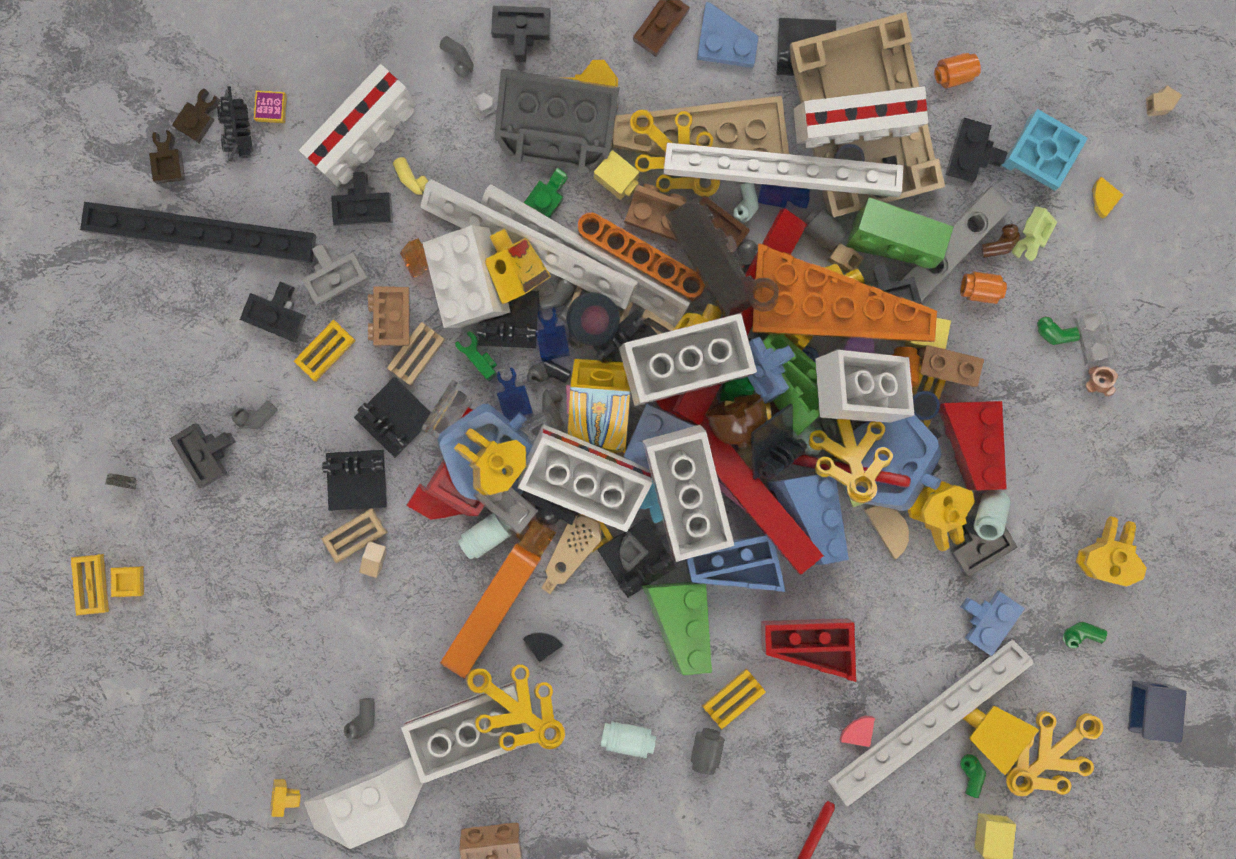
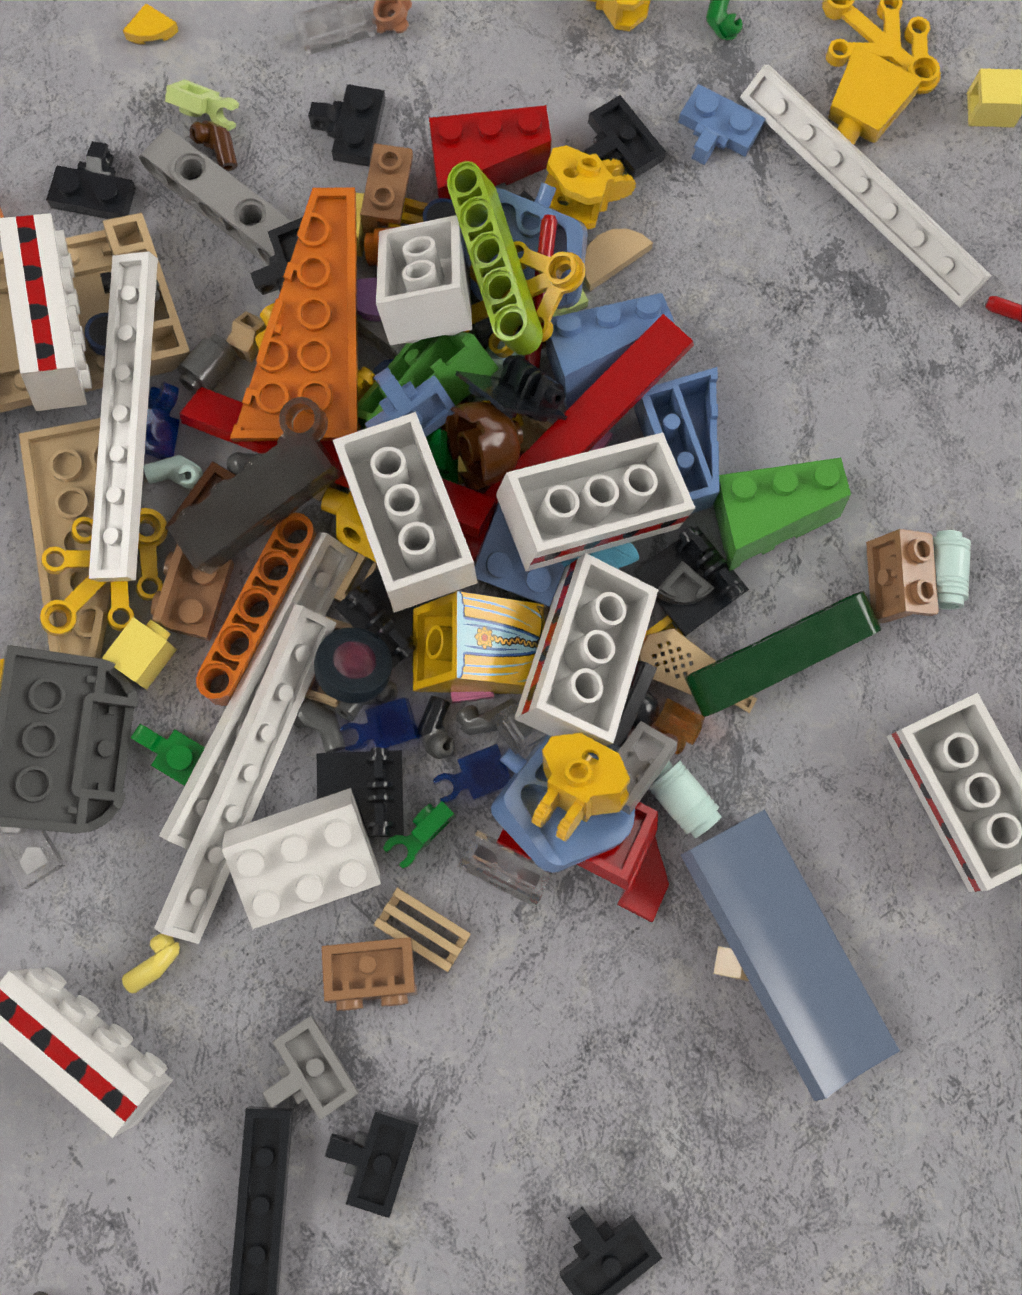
camera: 95 degrees left, 10 degrees down
(233, 116) = (71, 1260): black hinge -> none
(254, 419) = (543, 1179): dark grey arm -> none
(270, 106) = (46, 1203): tile -> none
(333, 325) = (426, 1097): yellow tile -> none
(355, 480) = (622, 1005): black hinge -> none
(361, 204) = (198, 1036): black hinge -> none
(363, 722) = (982, 958): dark grey arm -> none
(376, 522) = (729, 1031): tan tile -> none
(376, 591) = (790, 955): none -> sand blue arch
(393, 416) = (521, 954): black hinge -> none
(415, 257) = (276, 942): clear orange tile -> none
(490, 611) = (794, 781): orange beam -> none
(514, 267) = (283, 784): yellow torso -> none
(520, 711) = (937, 715): yellow plant -> none
(542, 644) = (830, 702): black tile -> none
(577, 615) = (782, 654): none -> dark green beam
(625, 706) = (902, 575): none -> medium nougat bracket
(707, 751) = (946, 462): dark grey brick -> none
(741, 707) = (878, 427): yellow tile -> none
(814, 643) = (779, 332): red wedge -> none
(859, 731) = (888, 273): coral tile -> none
(888, 429) = (503, 273): none -> lime beam
(899, 234) = (209, 260): bright green wedge -> none
(975, 772) = (921, 128): green arm -> none
(983, 287) = (277, 159): orange brick -> none
(992, 514) = (582, 123): light aqua head -> none
(1011, 344) = (351, 123): none -> black hinge
(1045, 149) = (87, 95): medium azure piece -> none
(1054, 334) = (334, 73): green arm -> none

